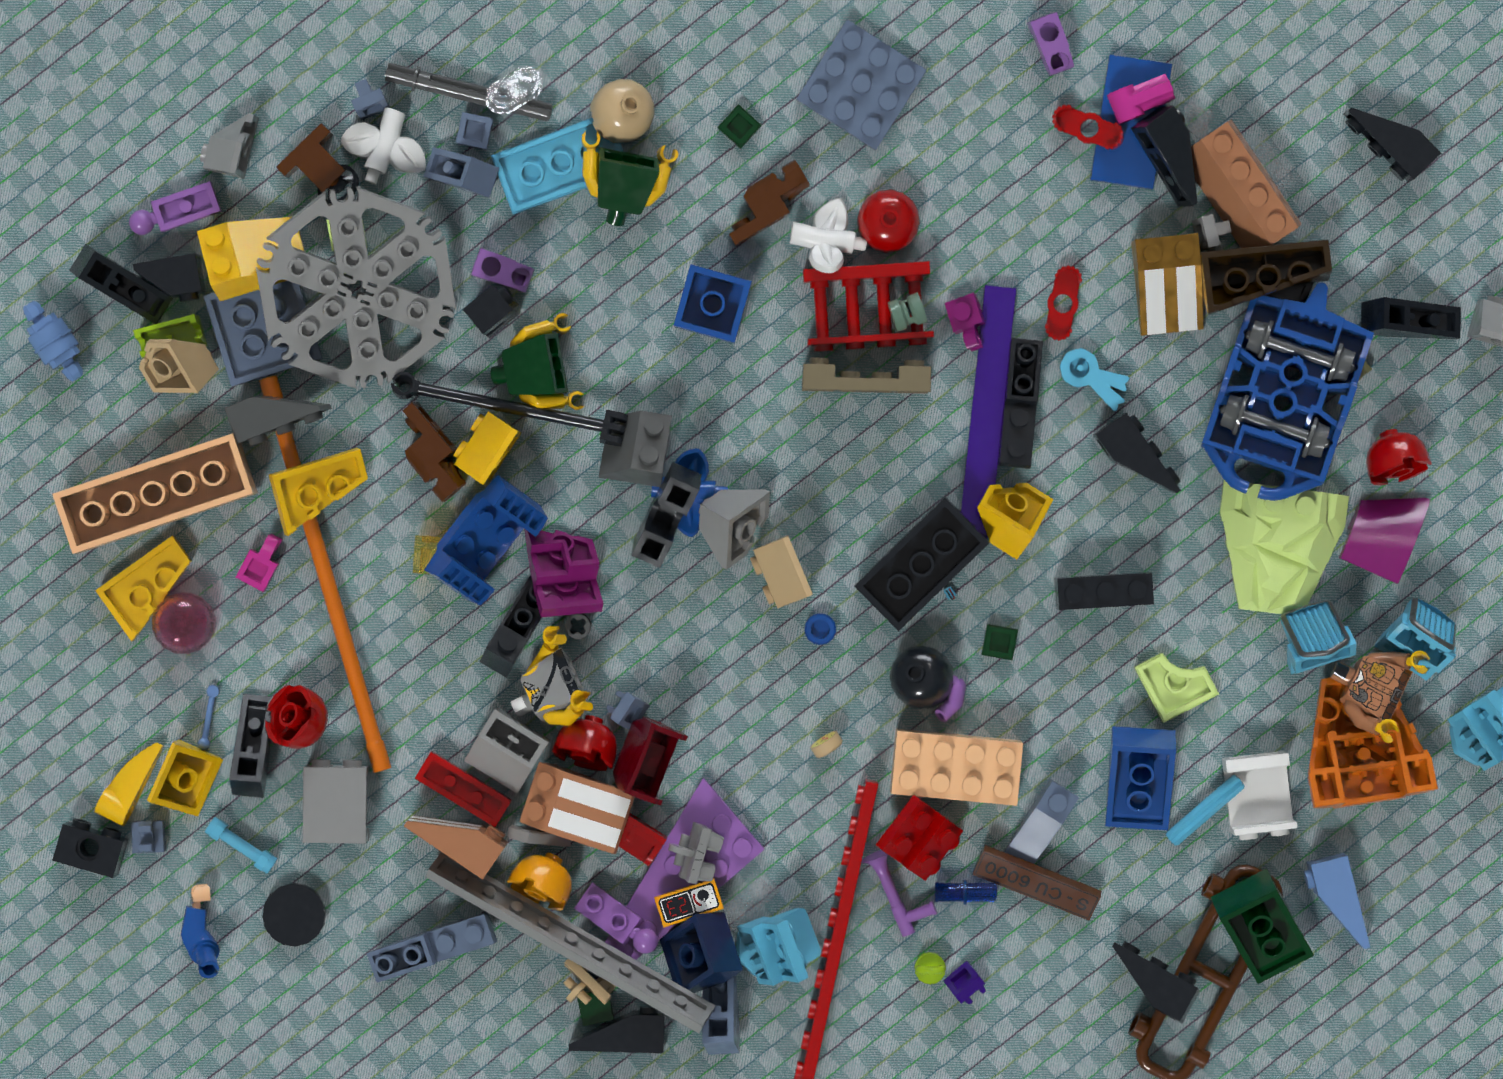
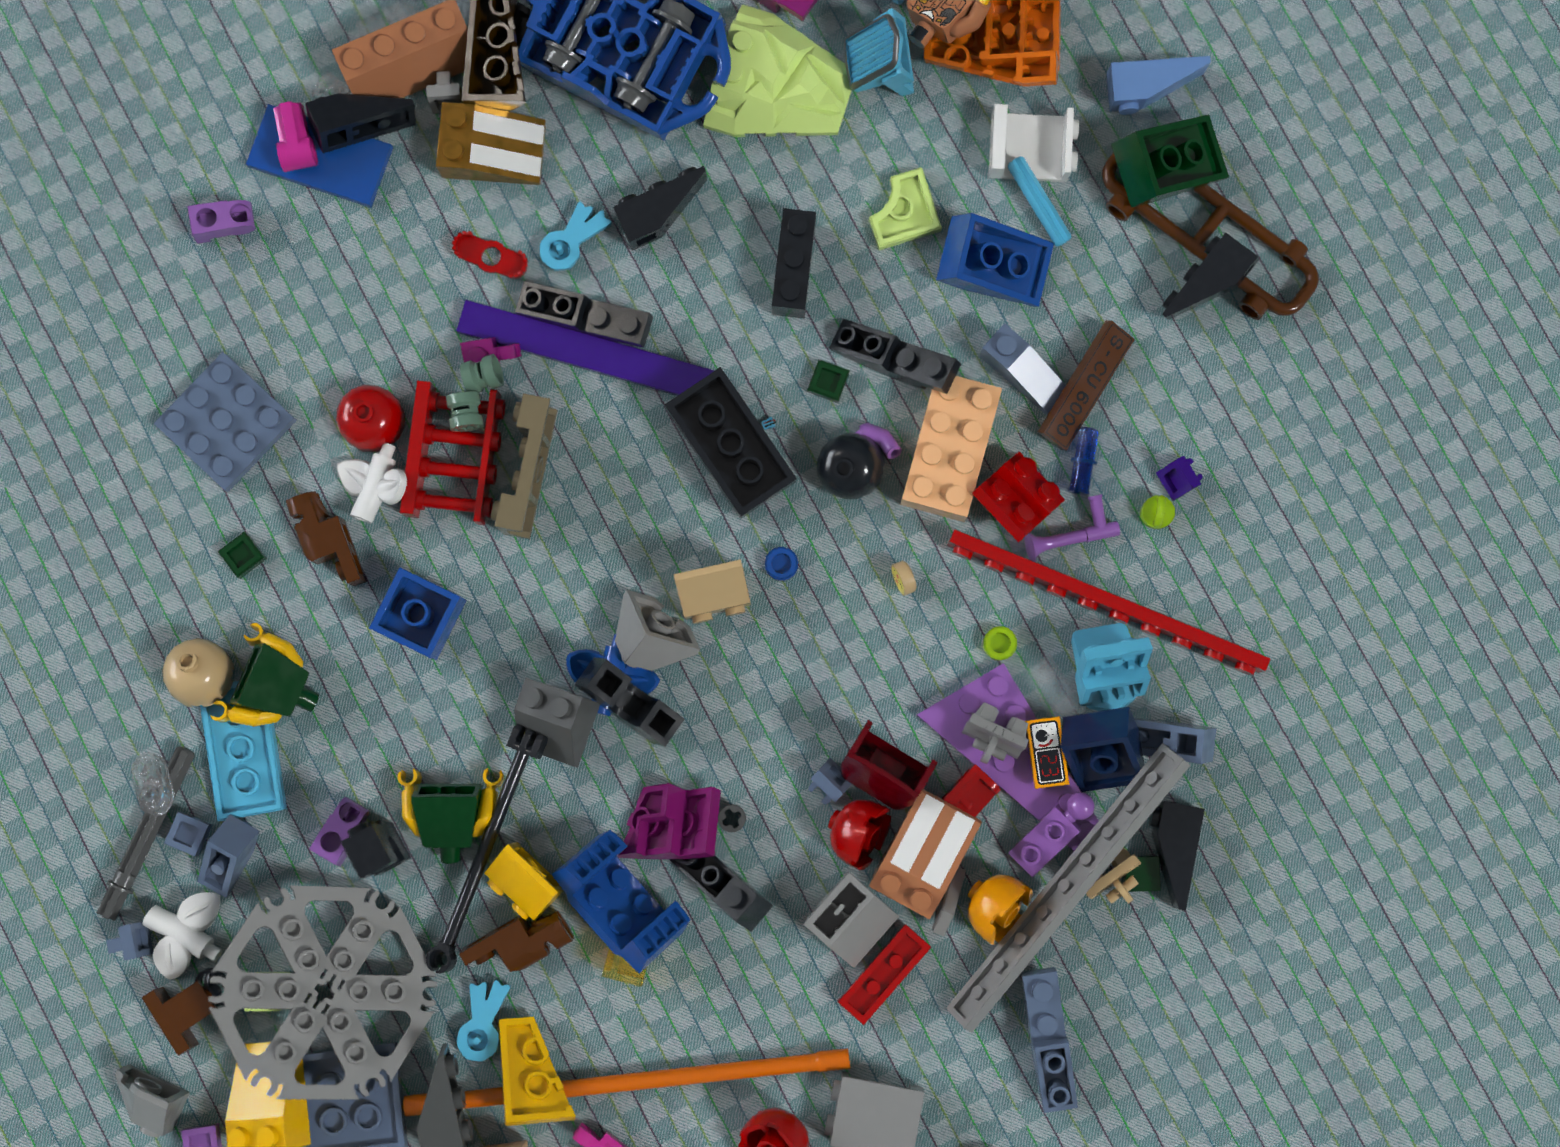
camera: 75 degrees left, 5 degrees down
(340, 432) = (479, 1037): none -> medium azure piece
(464, 842) = (943, 981): nougat slope -> none
(552, 685) = (789, 856): torso -> none
(782, 842) = (999, 643): none -> lime tile
(945, 320) = (482, 374): none -> sand green wheel
(1012, 515) = (700, 342): yellow slope -> none
(1030, 700) = (894, 357): none -> black slope
(1070, 121) = (305, 215): red piece -> none

